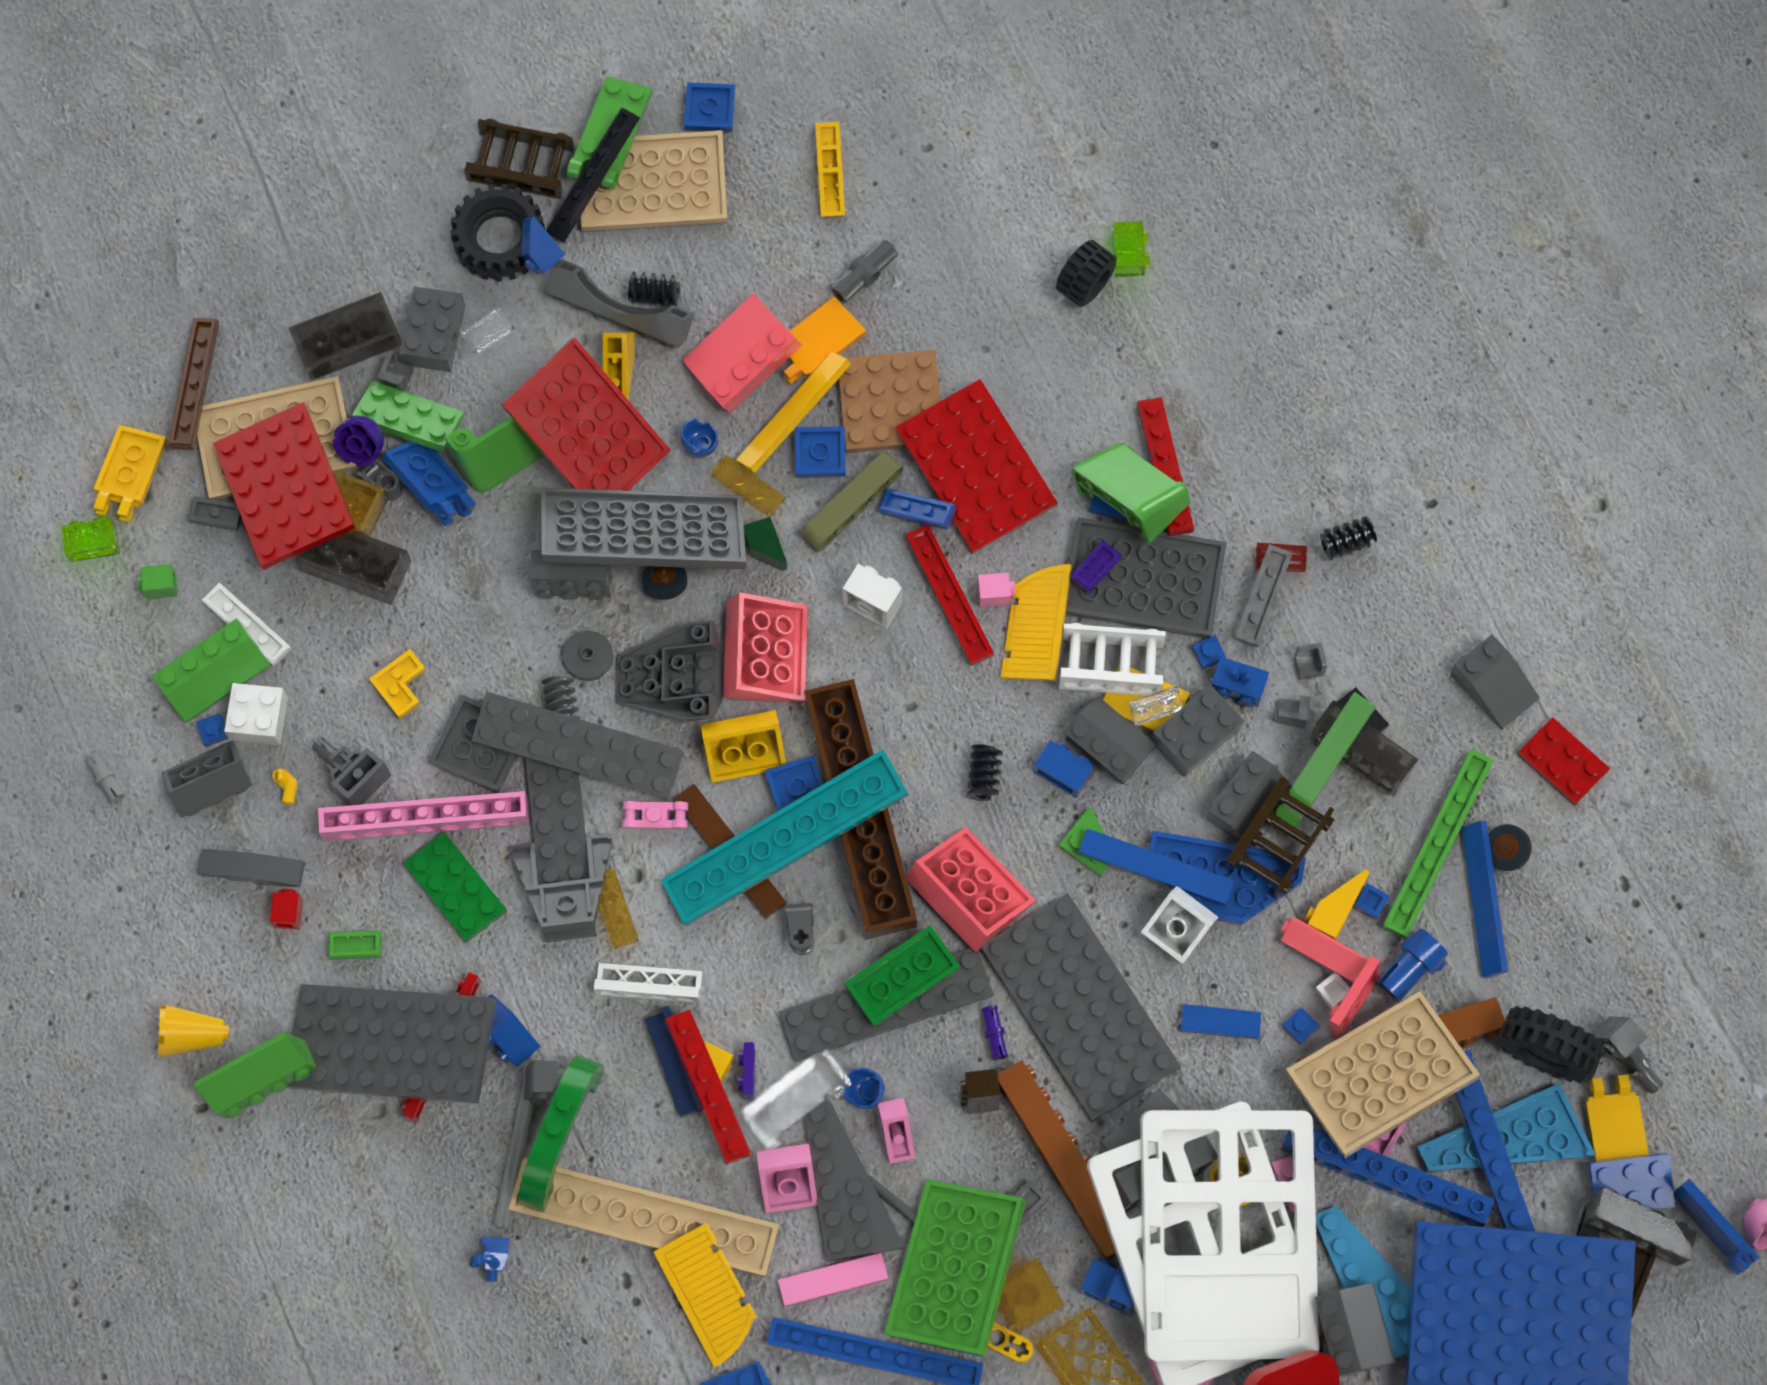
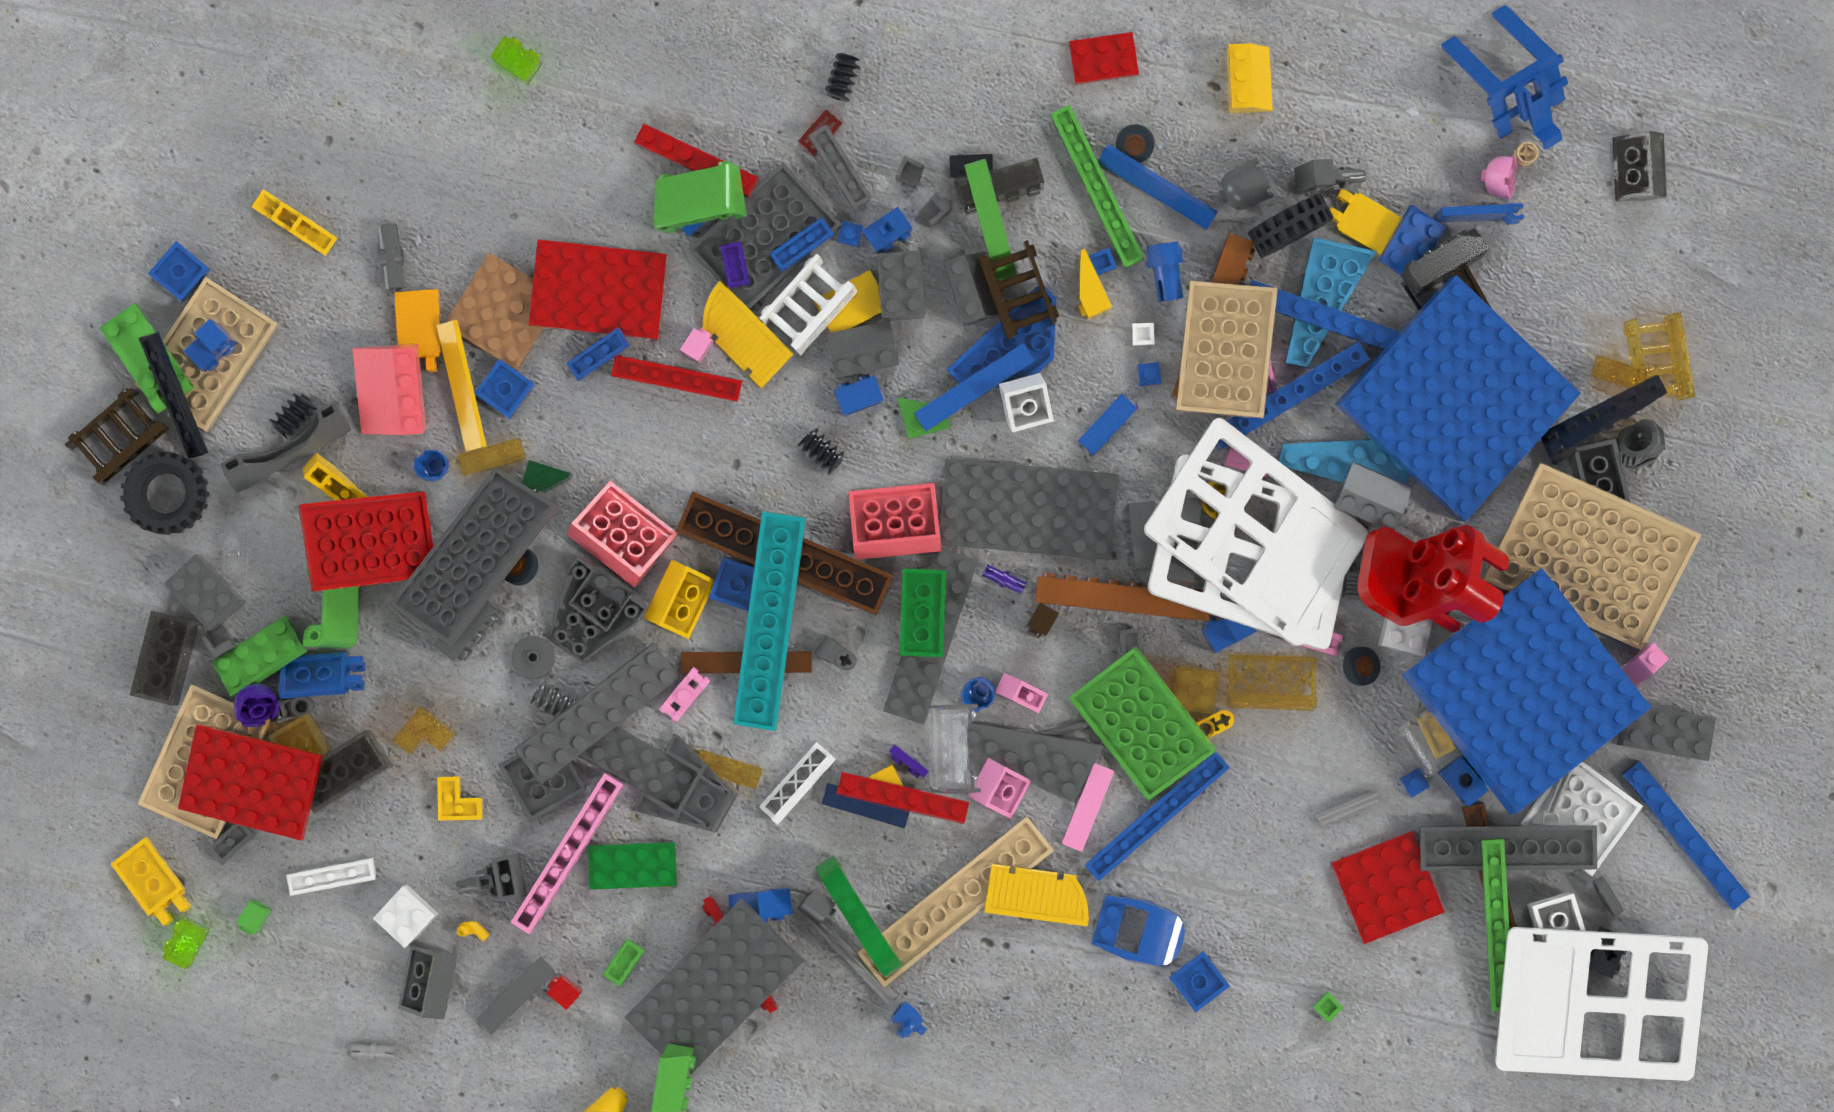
camera: 55 degrees left, 15 degrees up
(193, 384) = (119, 790): reddish brown tile -> none
(209, 669) = (350, 925): bright green slope -> none
(212, 730) = (393, 953): blue plate -> none
(446, 602) = (424, 726): none -> clear yellow brick
(538, 247) = (203, 476): blue slope -> none
(662, 174) = (210, 346): none -> blue brick
(852, 501) = (558, 394): olive beam -> none
(872, 595) = (640, 432): white brick -> none
(1086, 273) = (514, 105): black tyre -> none
(1155, 705) = (863, 300): clear plate -> none
(1163, 613) = (801, 244): none -> blue tile
(1339, 959) = (1127, 316): coral piece -> none
(1495, 682) = (1017, 59): dark grey slope -> none
(1553, 979) = (1245, 186): none -> dark grey cylinder
(1658, 909) = (1249, 78): none -> yellow slope

